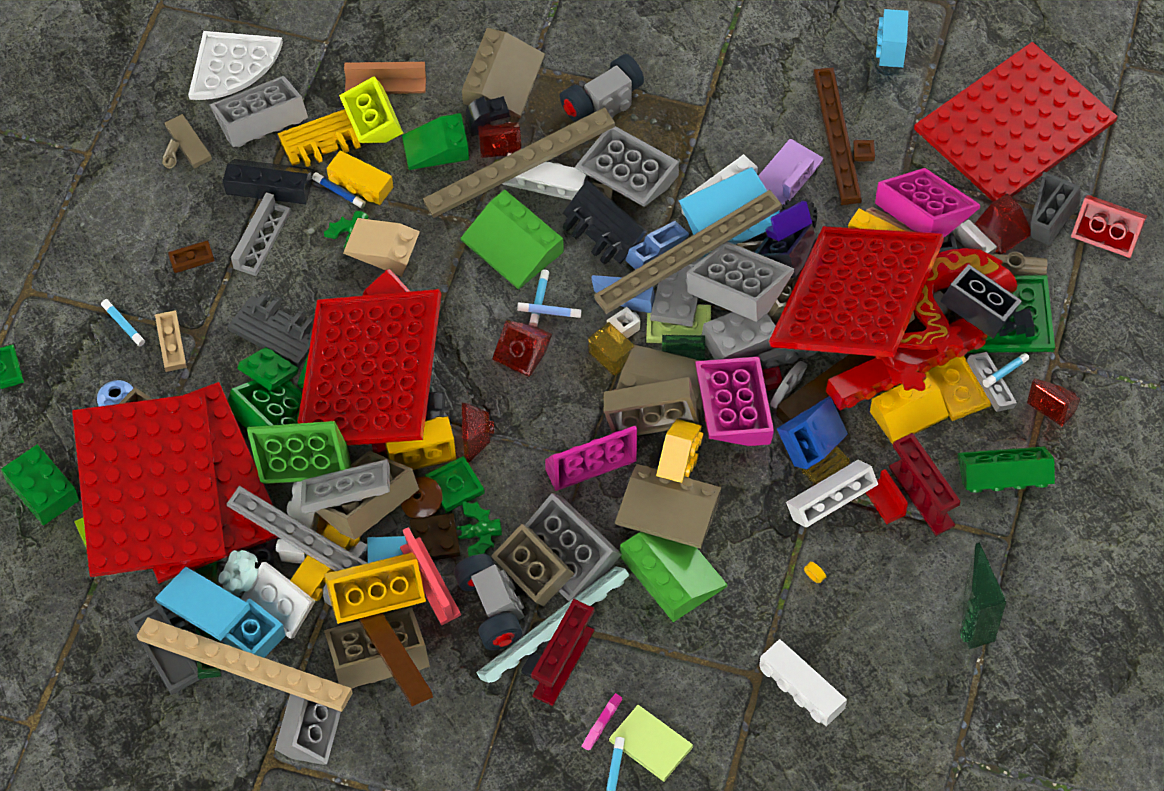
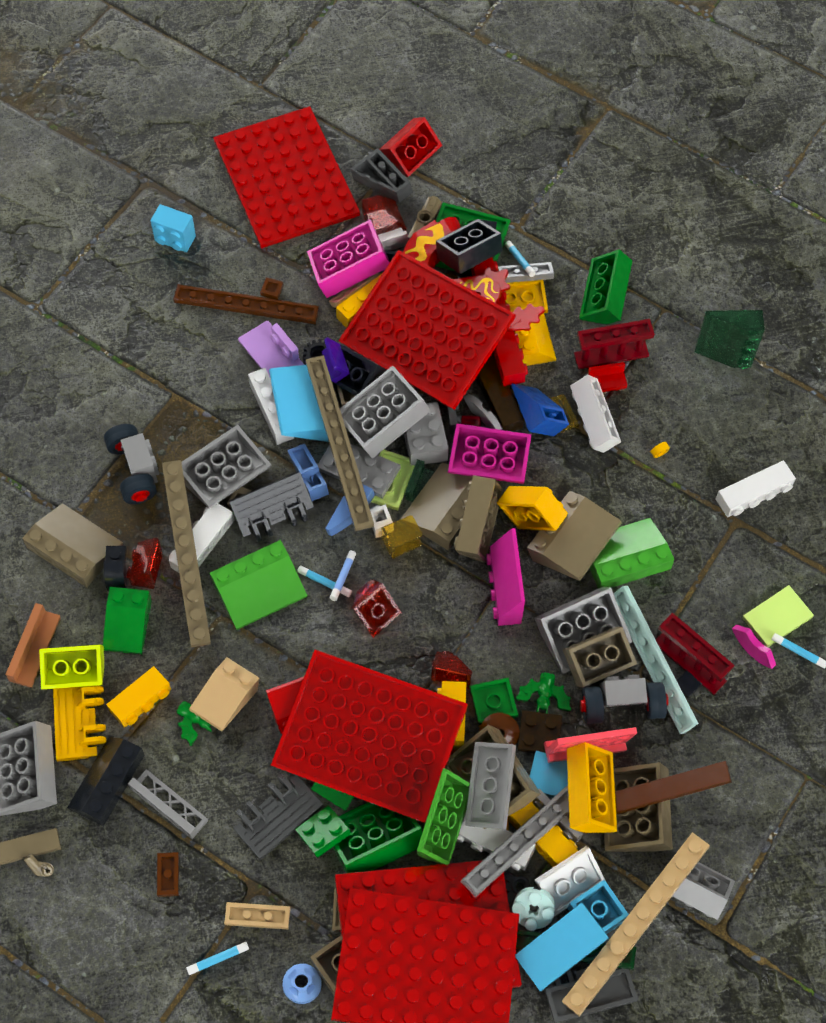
camera: 75 degrees left, 5 degrees up
(338, 190) = (142, 720): blue bar -> none
(1053, 401) = (562, 235): clear red slope -> none

